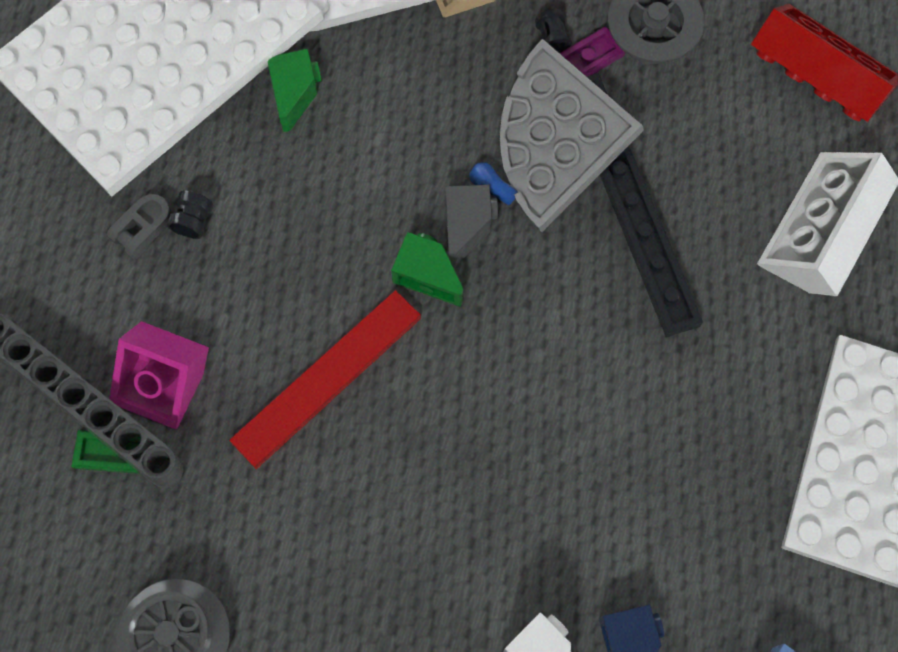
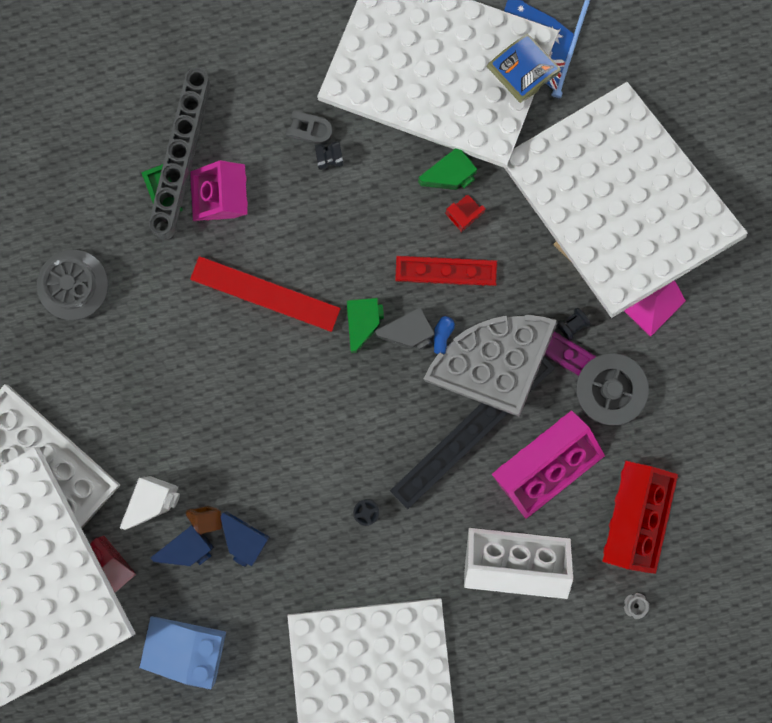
camera: 65 degrees right, 15 degrees up
(352, 93) = (464, 212): none -> red panel
(412, 148) = (446, 271): none -> red tile
(600, 595) = (205, 519): none -> reddish brown slope
(653, 557) = (243, 539): none -> dark blue slope
(686, 369) = (367, 515): none -> black wheel
(715, 132) = (549, 464): none -> dark pink slope

